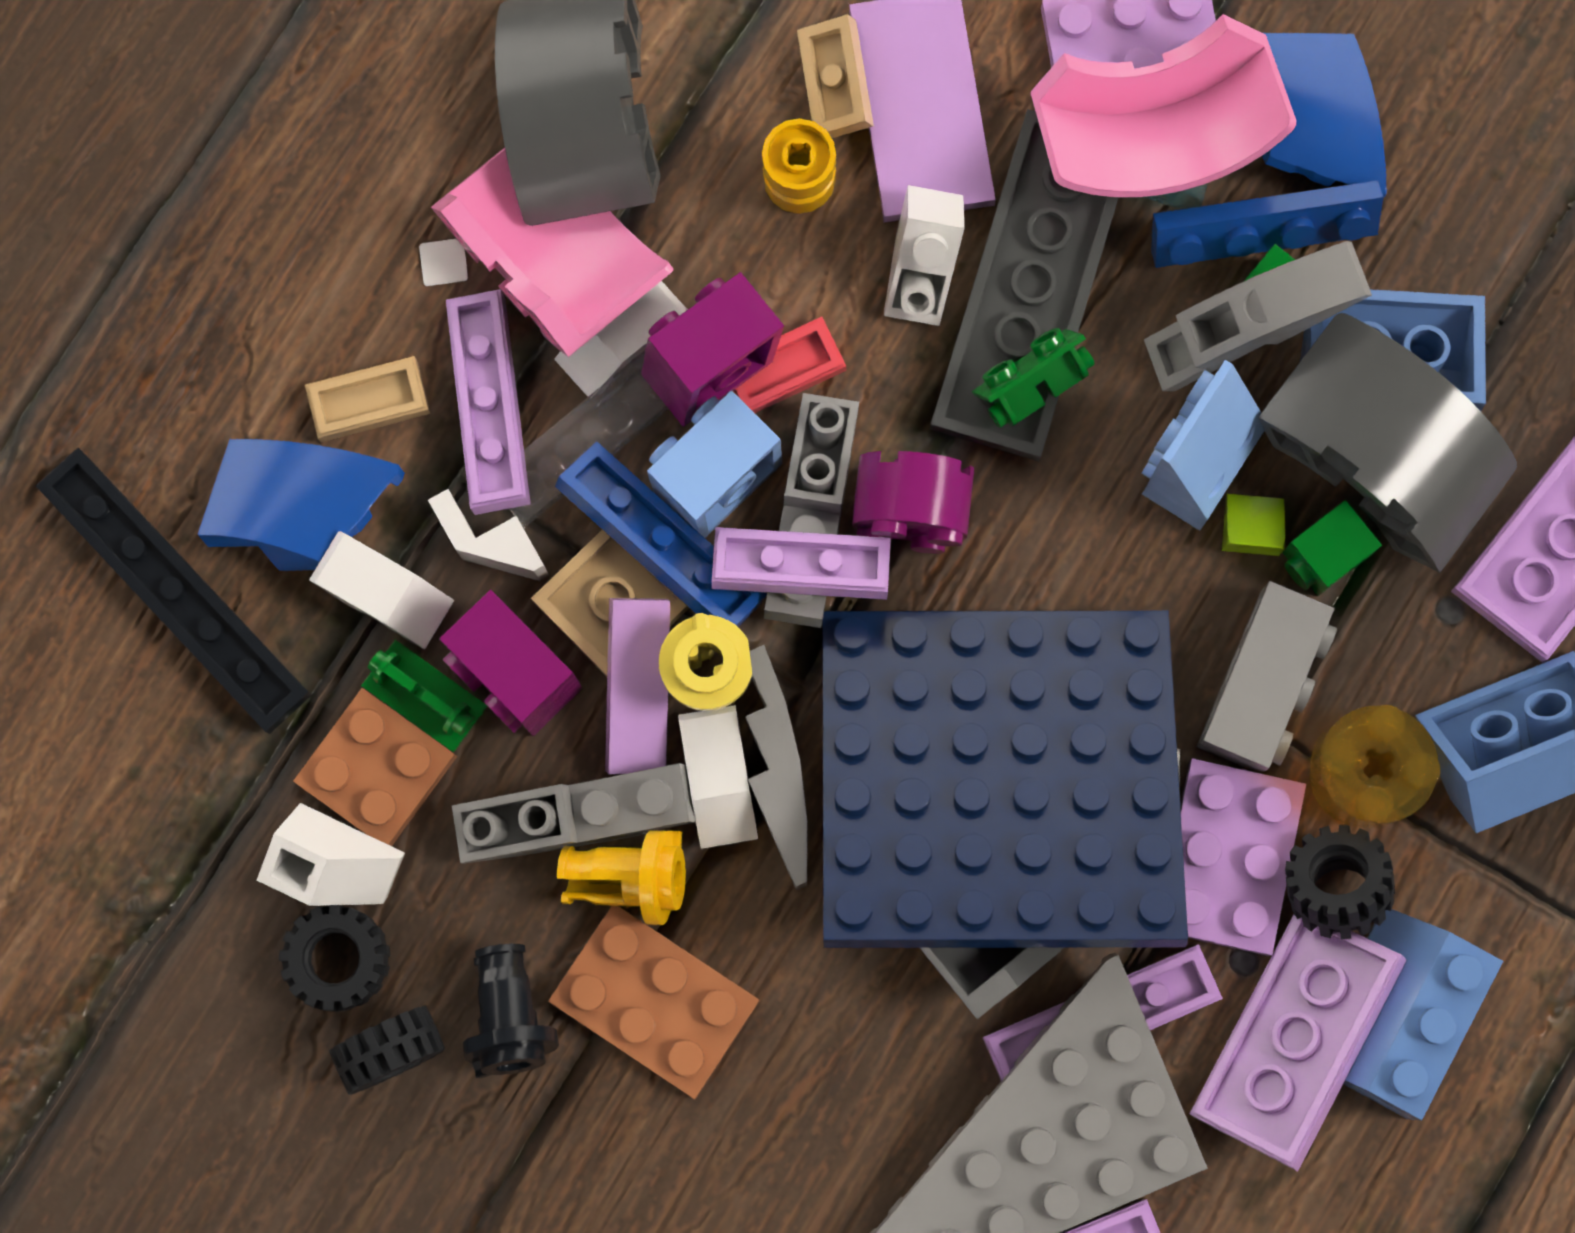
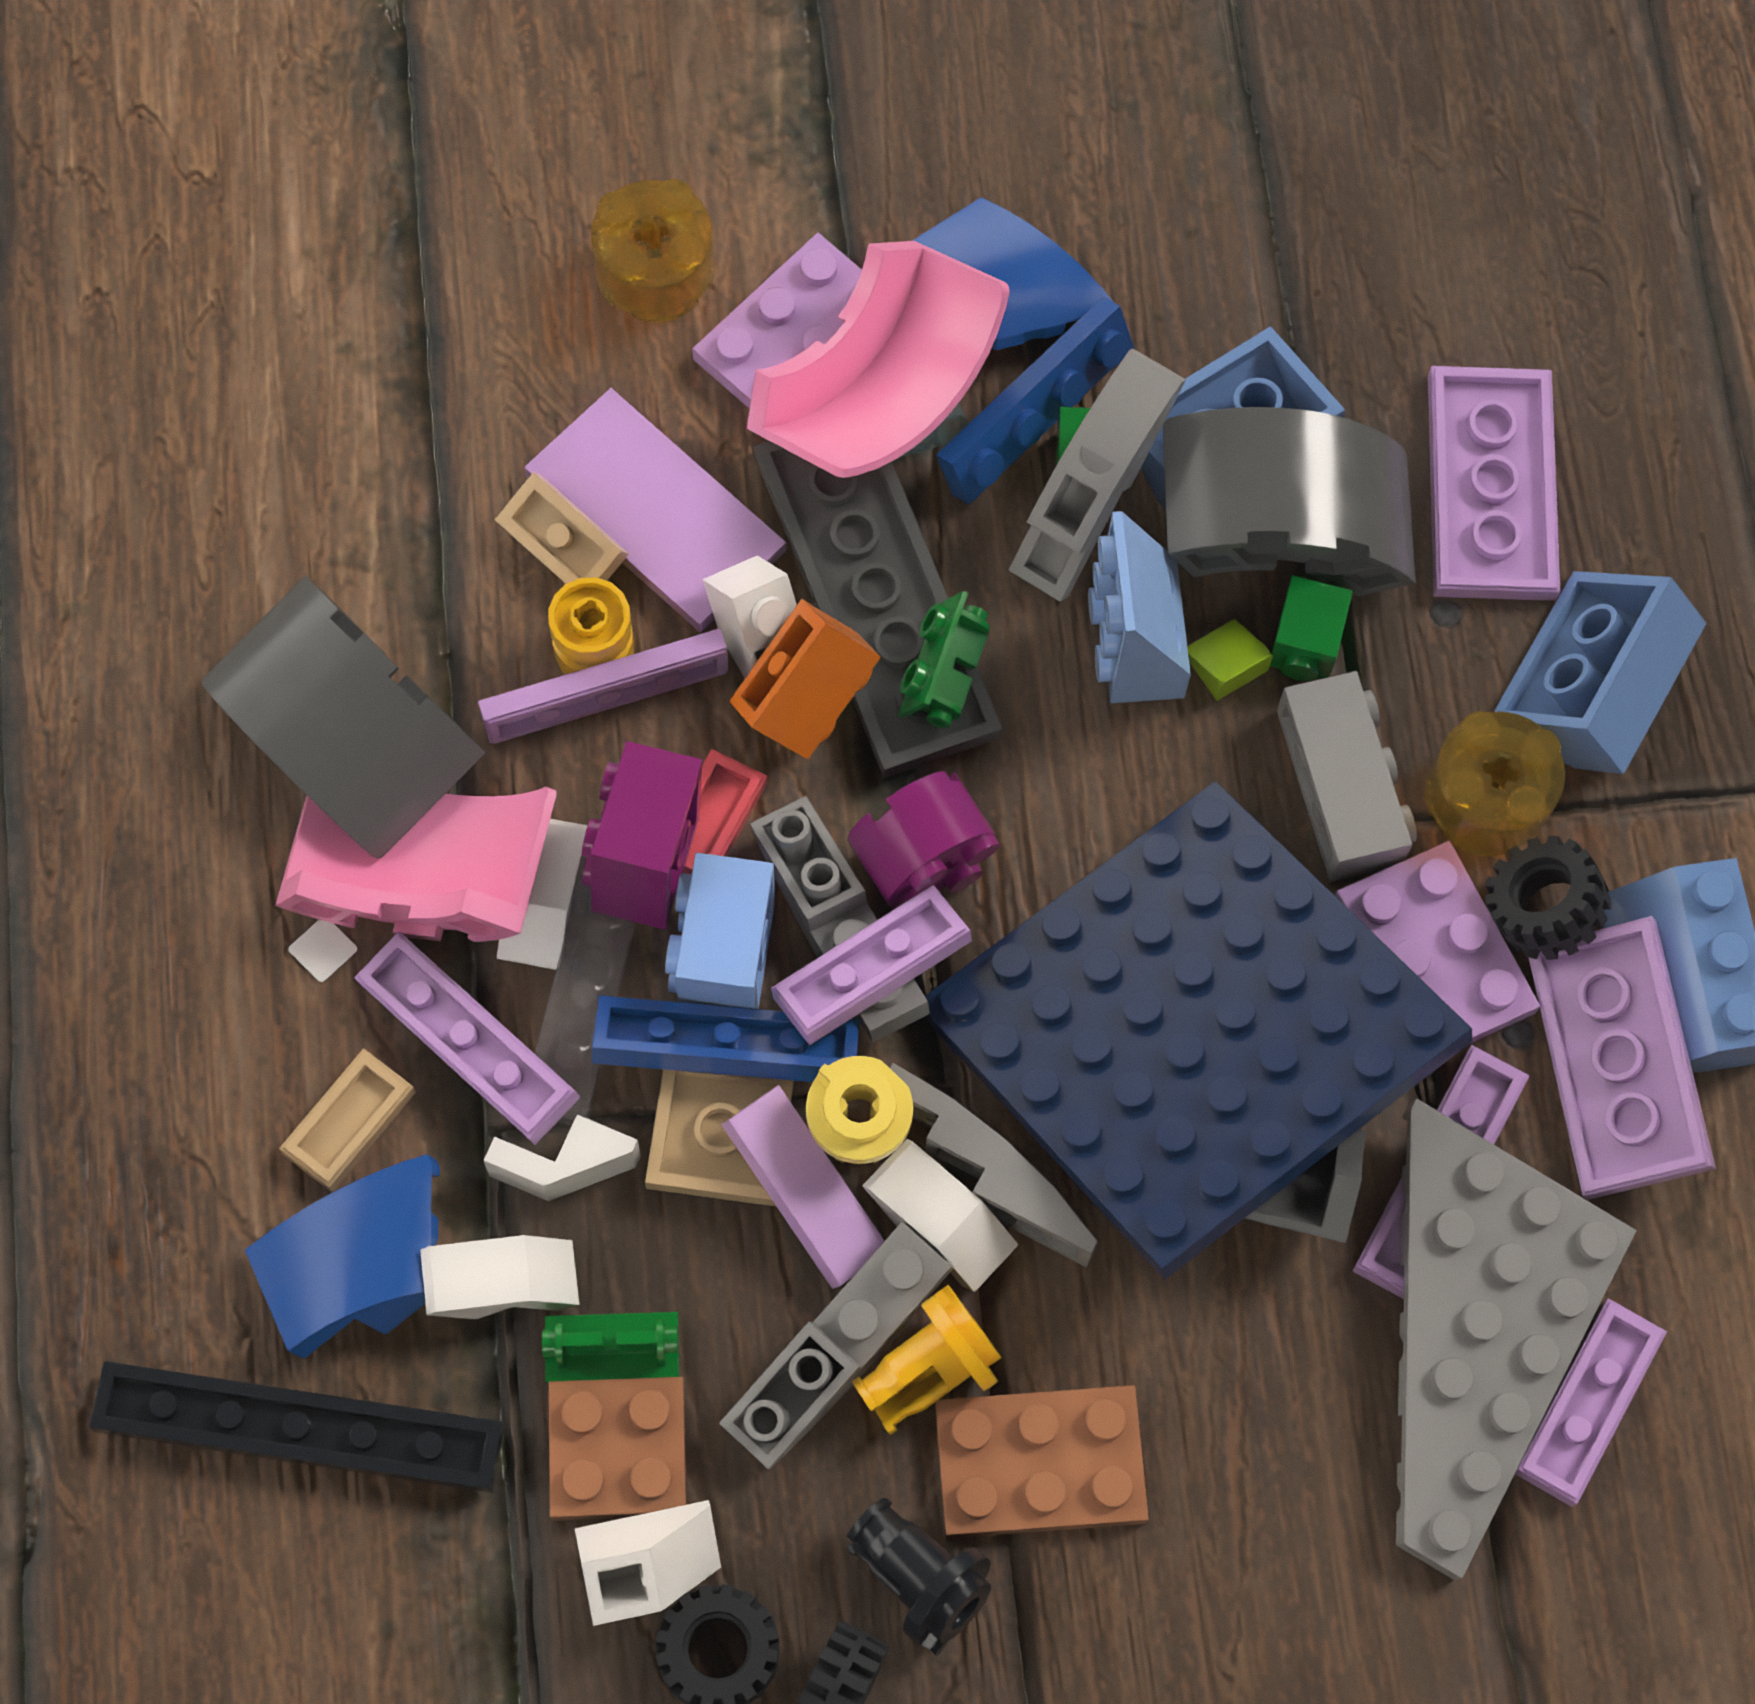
camera: 45 degrees left, 10 degrees down
(511, 662) = (676, 1250): magenta brick -> none
(779, 214) = (604, 686): none -> lavender tile
(920, 316) = (805, 679): none -> orange brick

